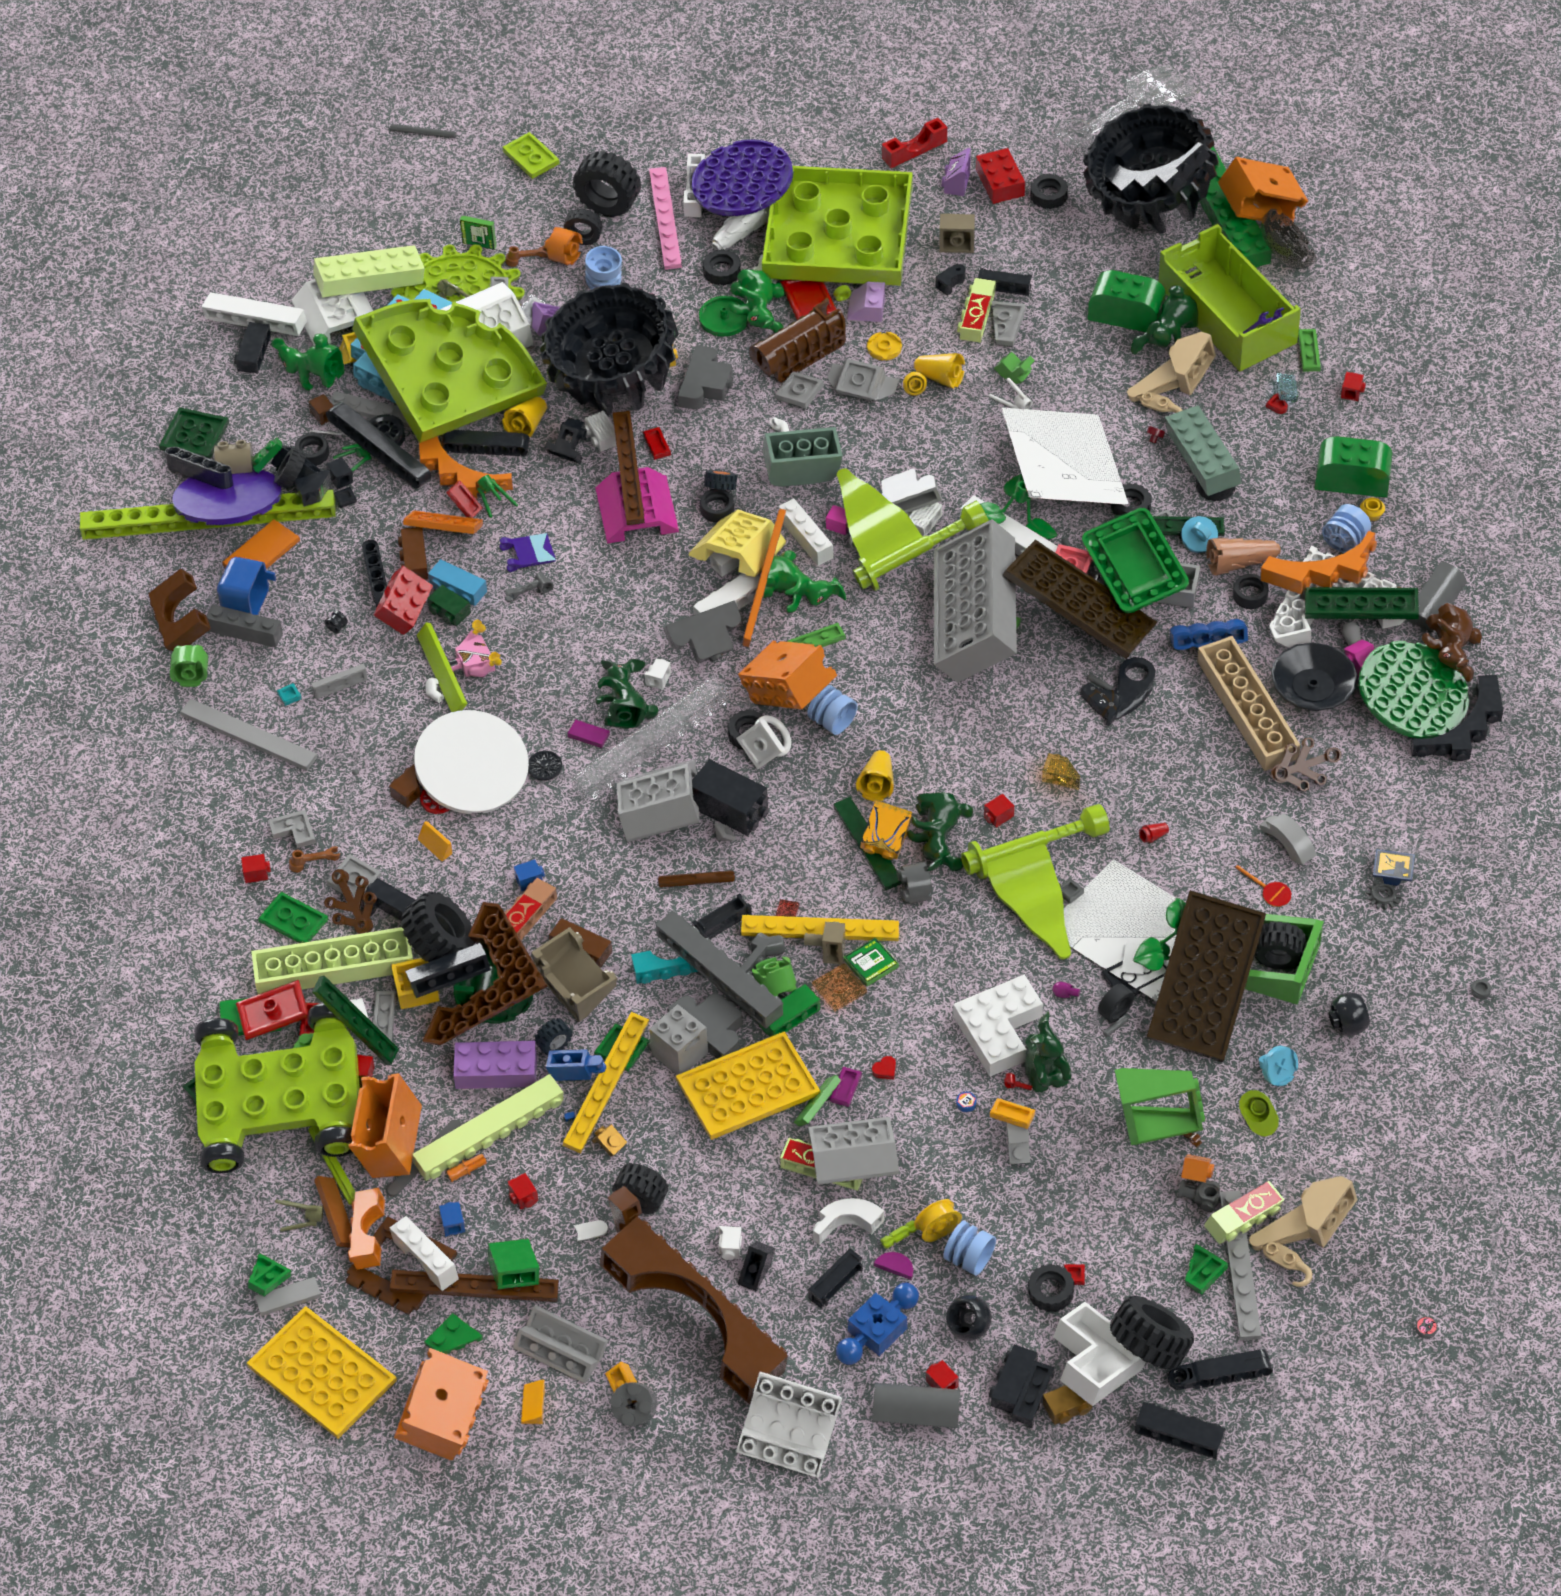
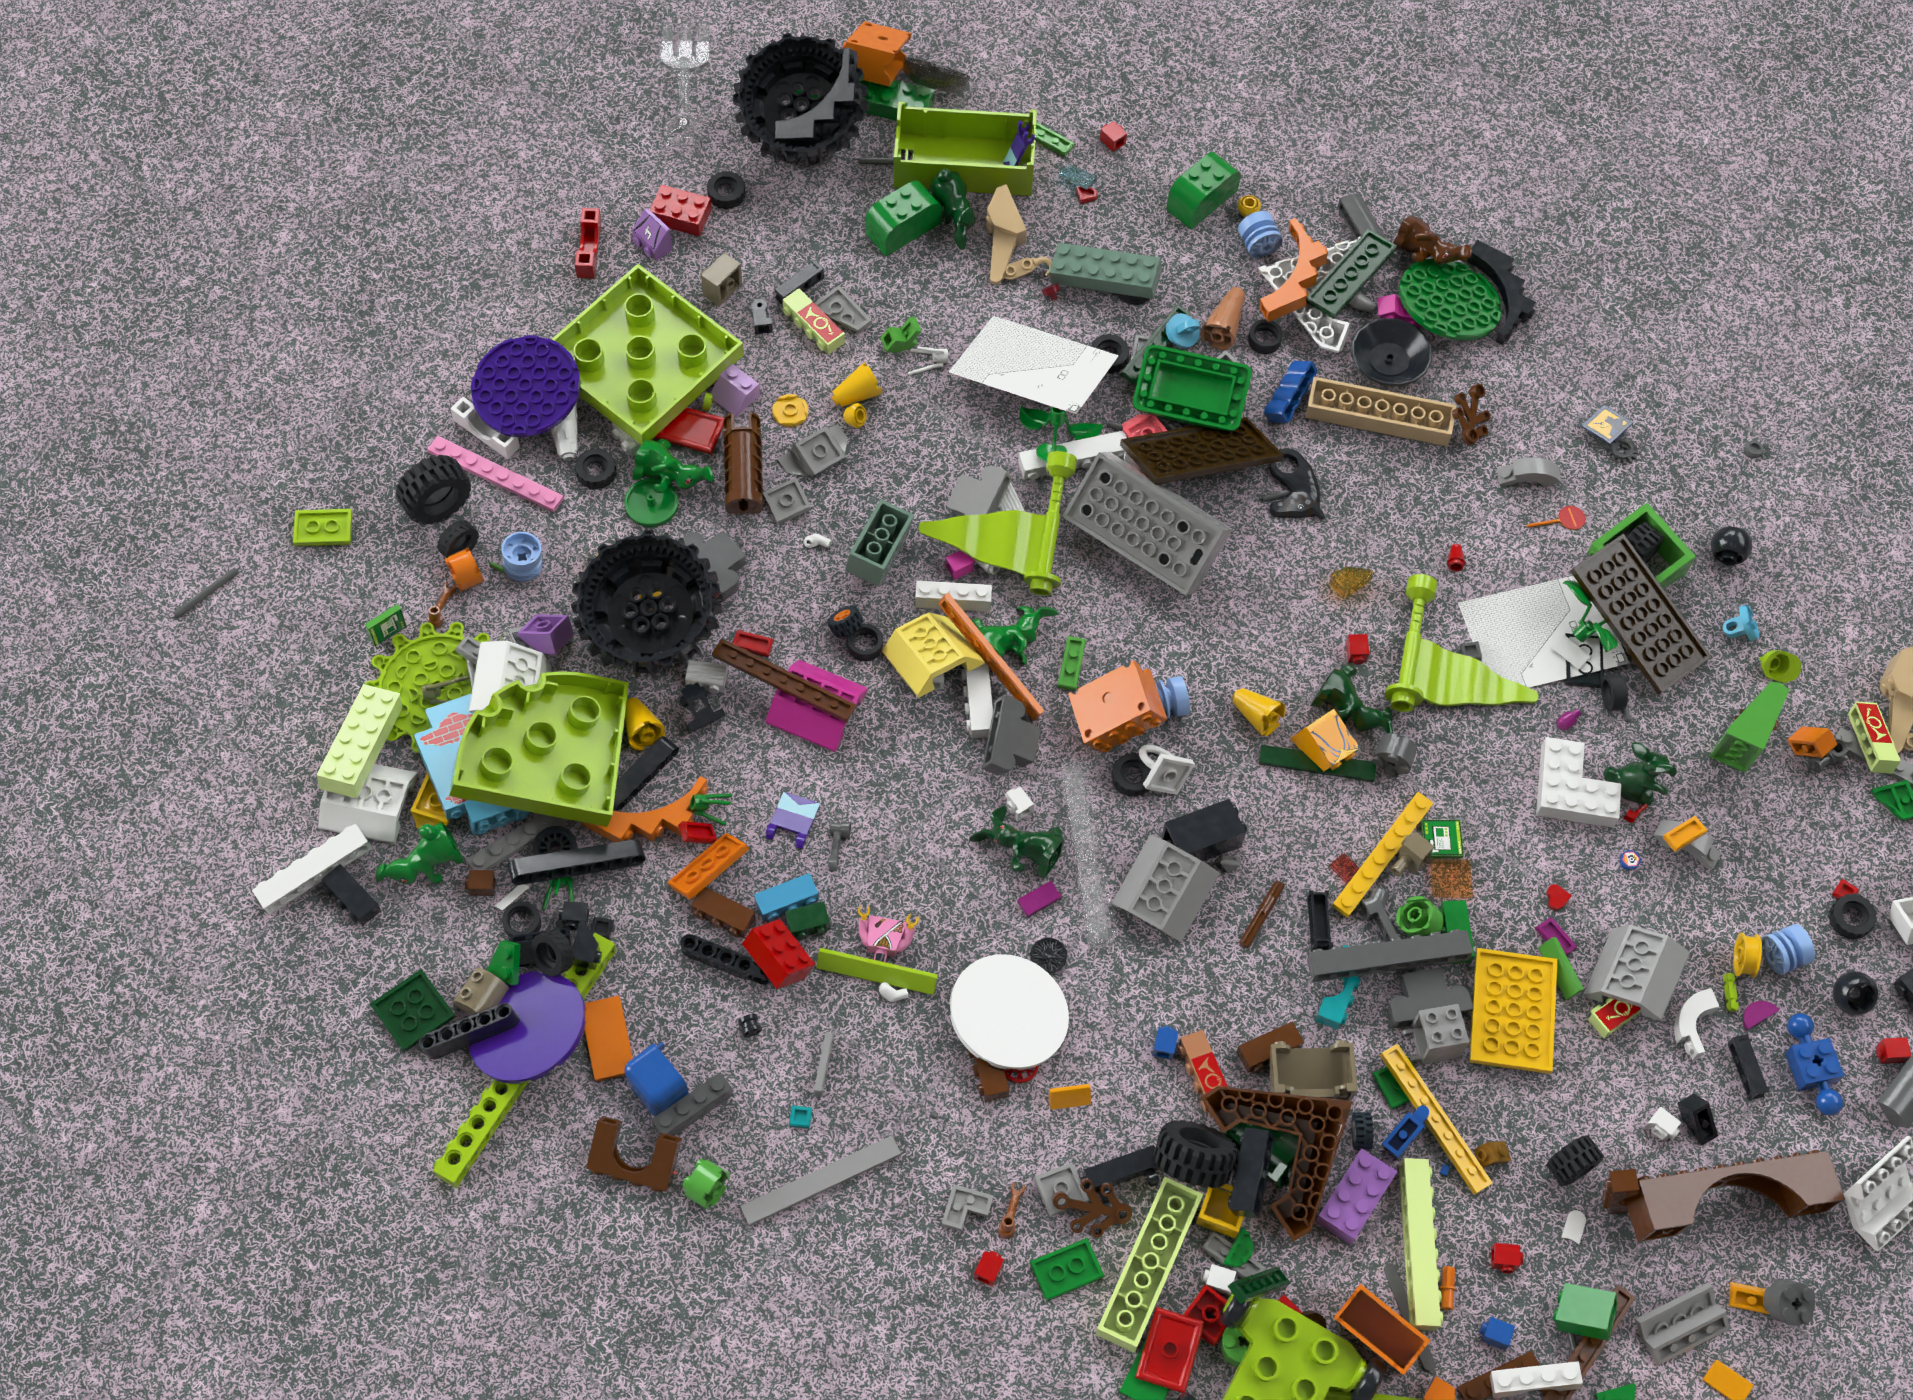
camera: 60 degrees left, 10 degrees up
(391, 1014) = (1240, 1251): none -> green tile

